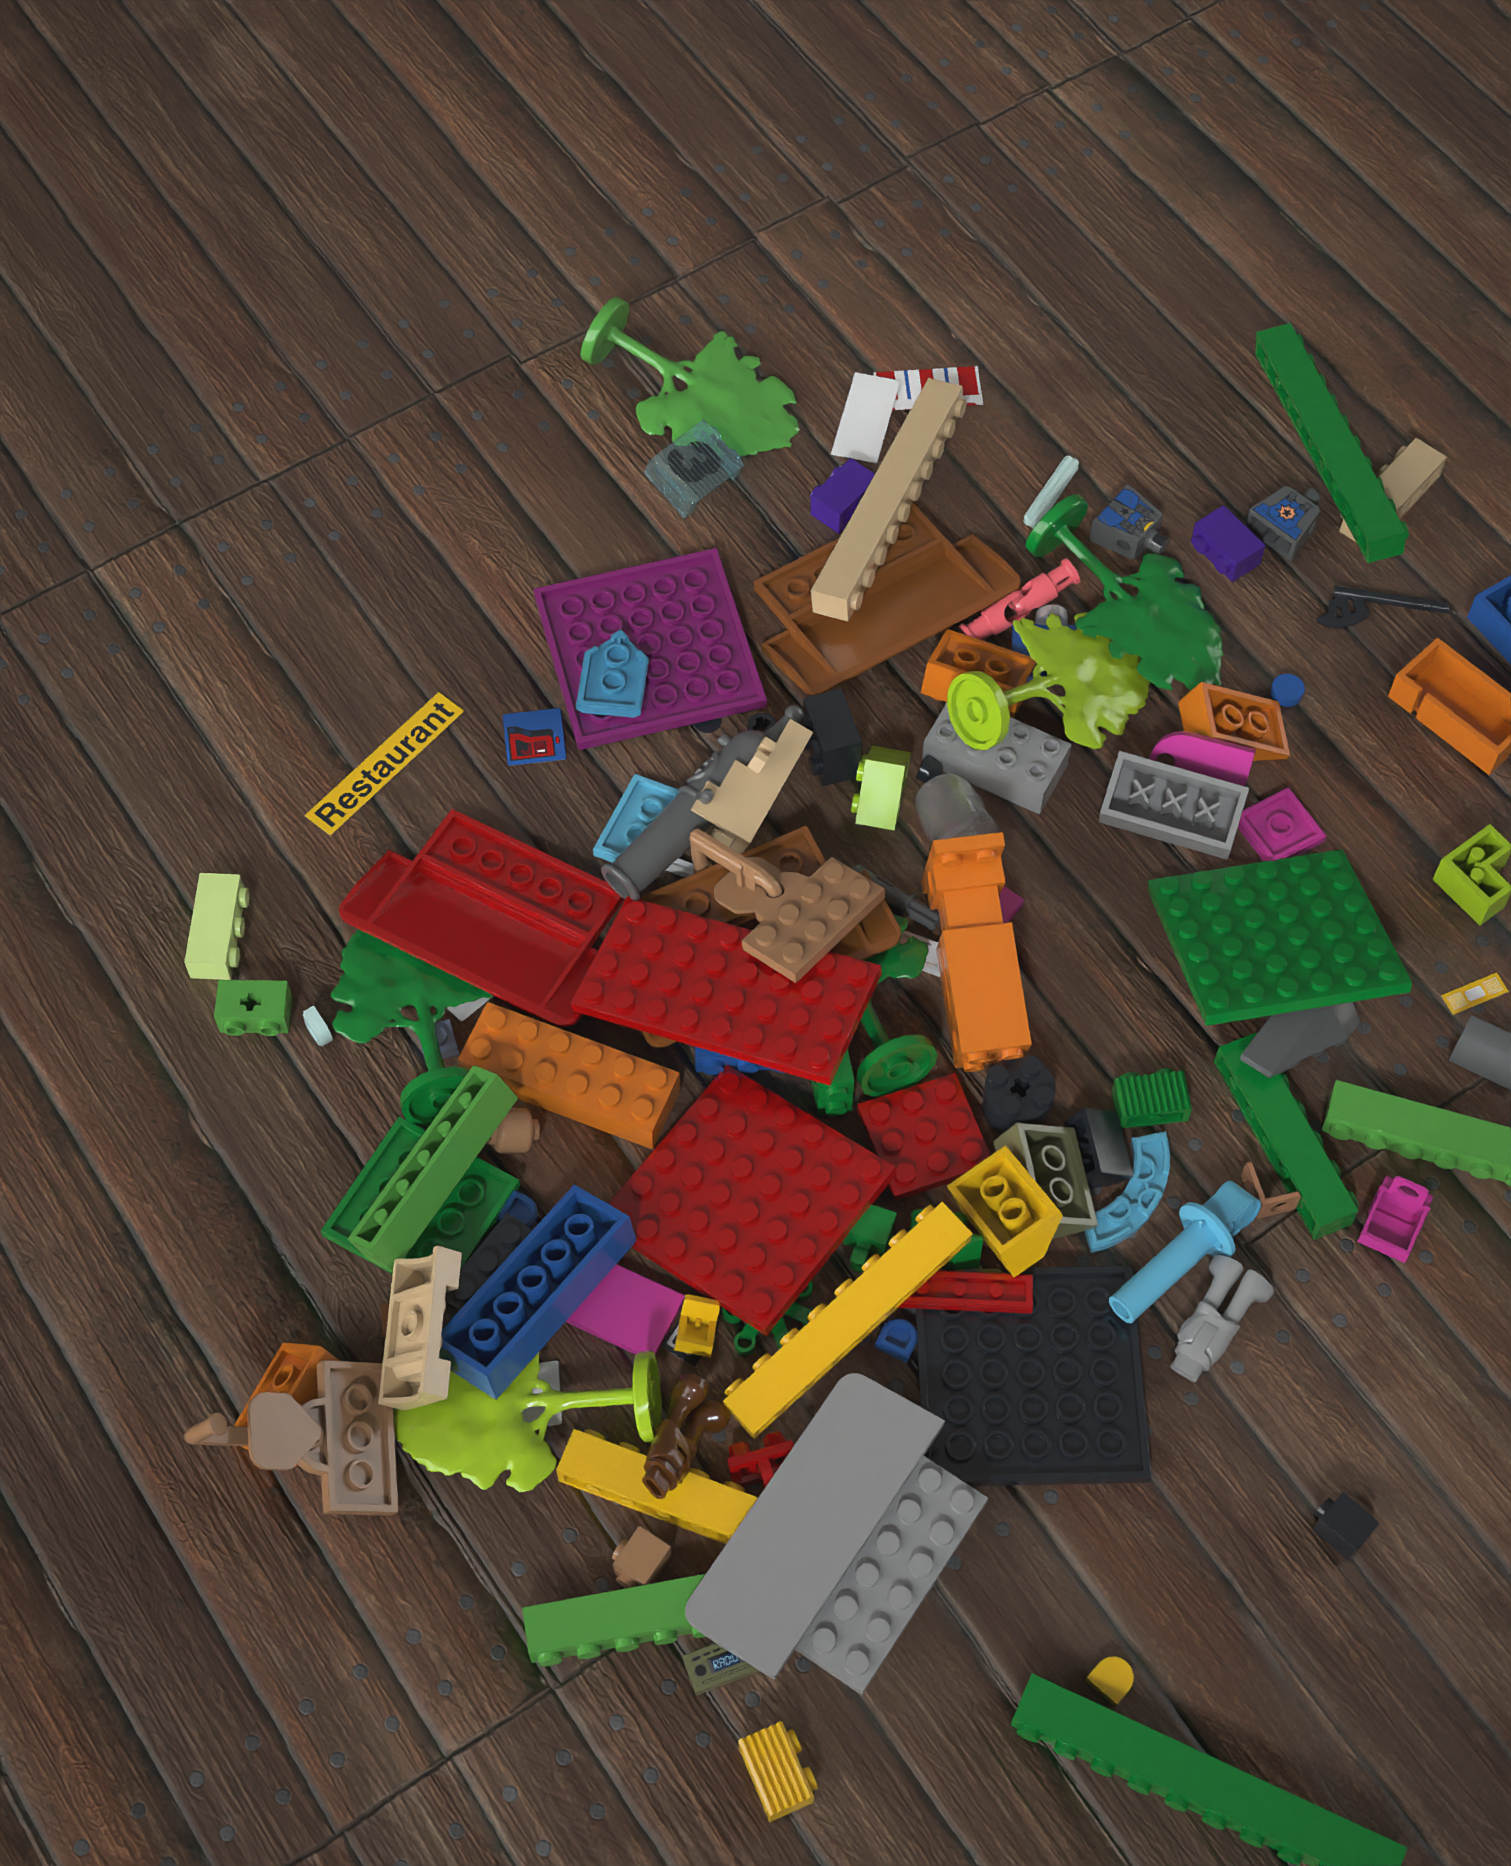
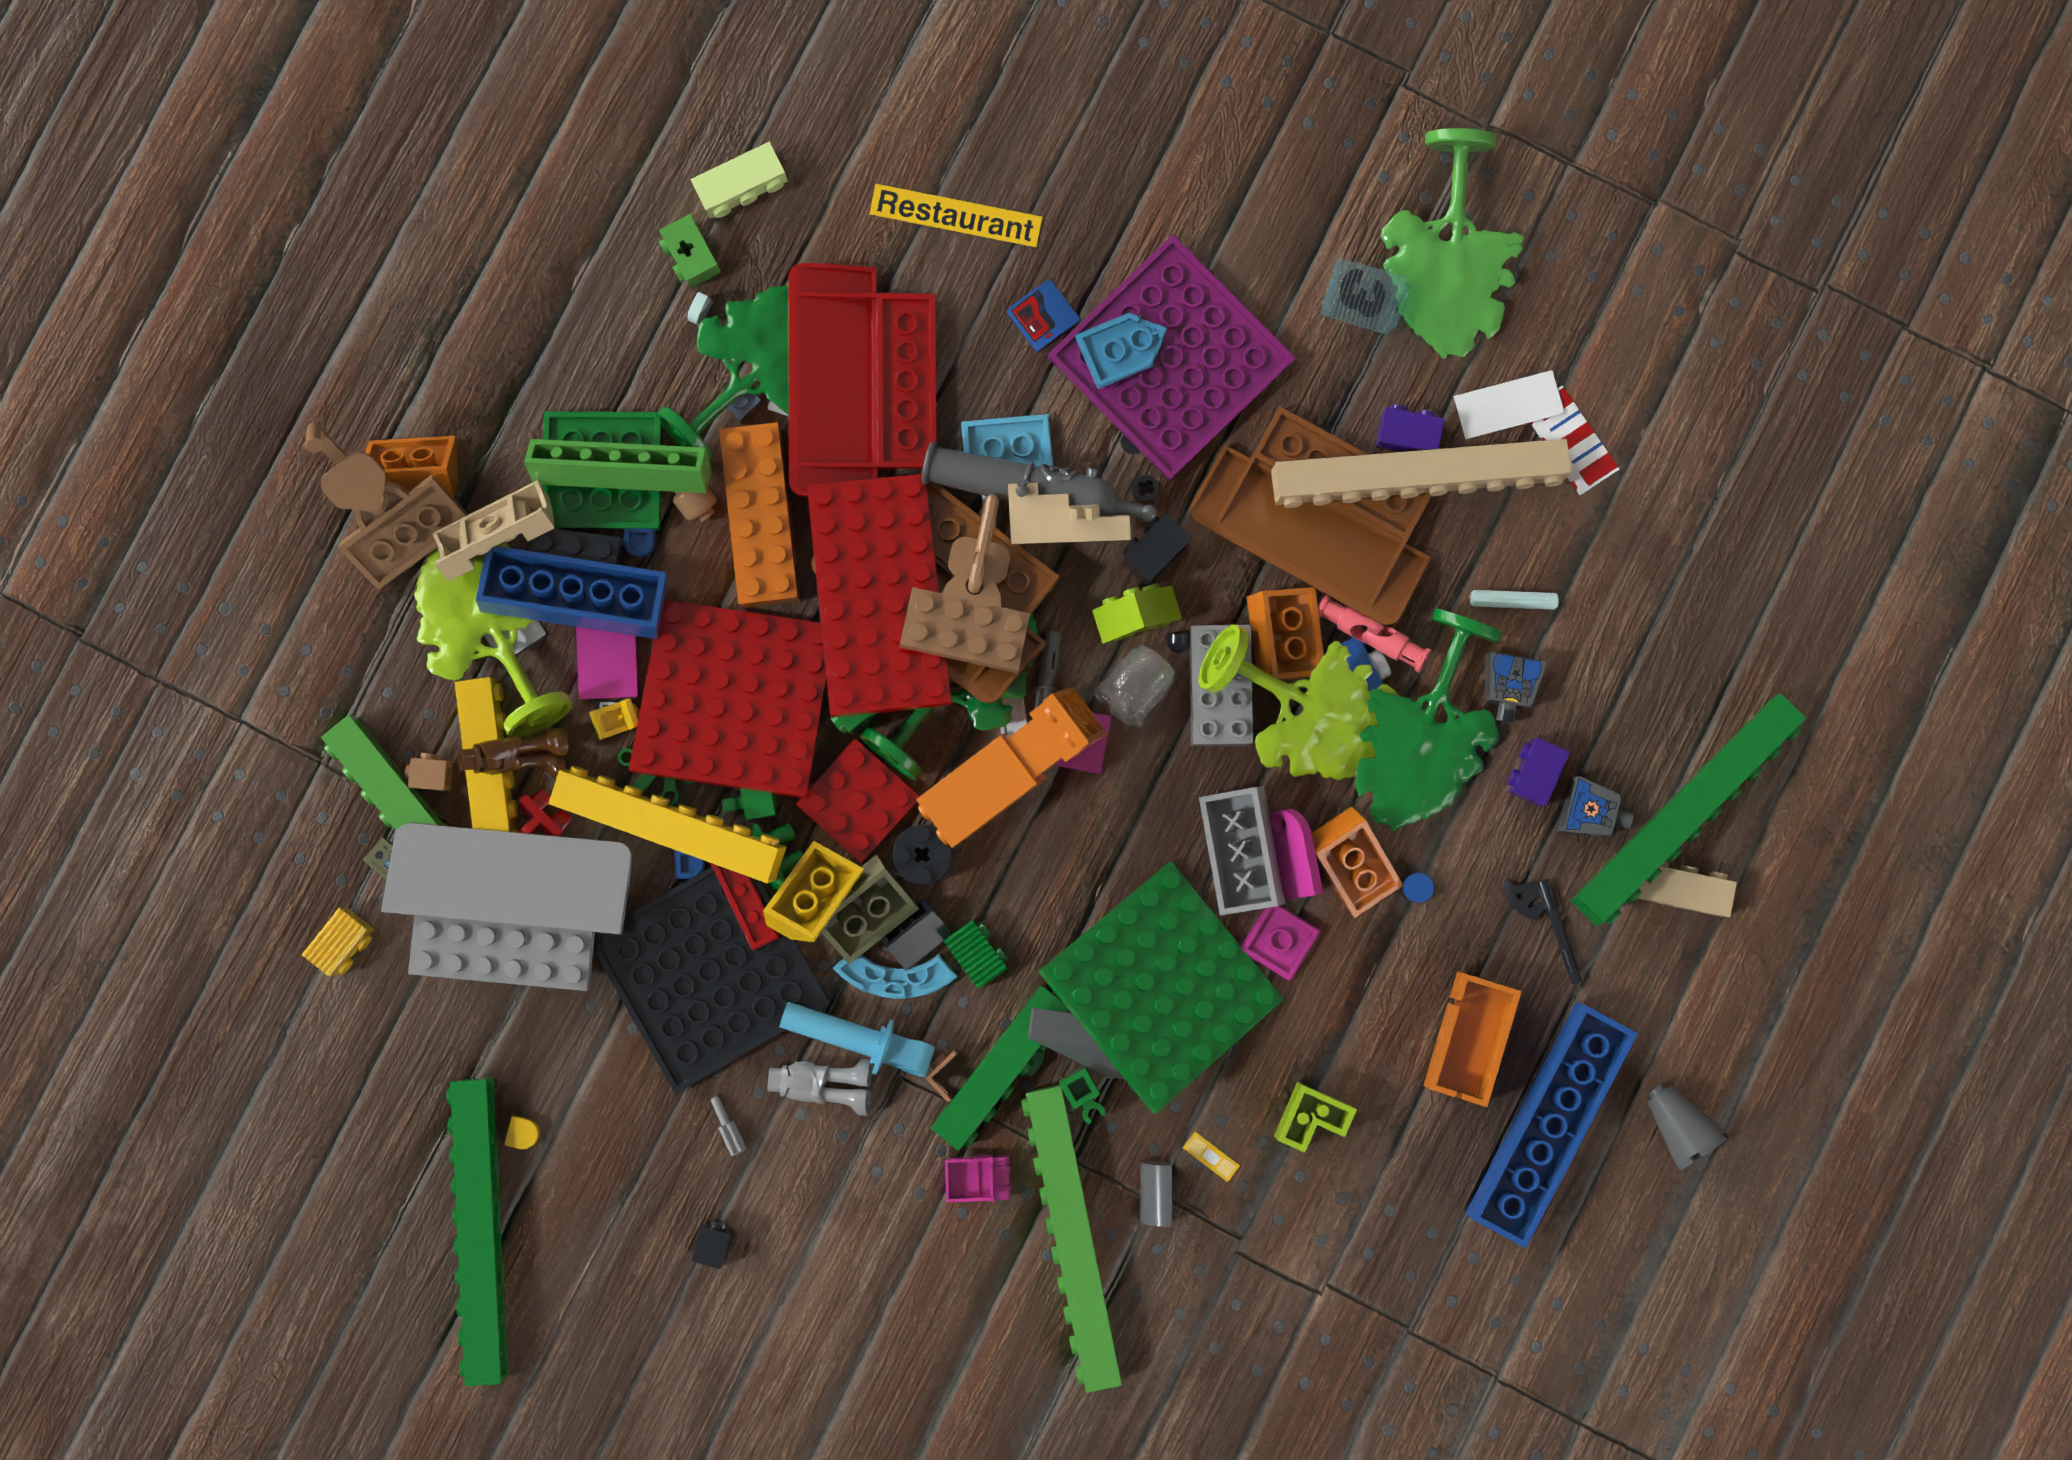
camera: 65 degrees right, 25 degrees up
(1219, 1446) = (729, 1129): none -> light grey axle
(1349, 1064) = (1080, 1091): none -> green brick

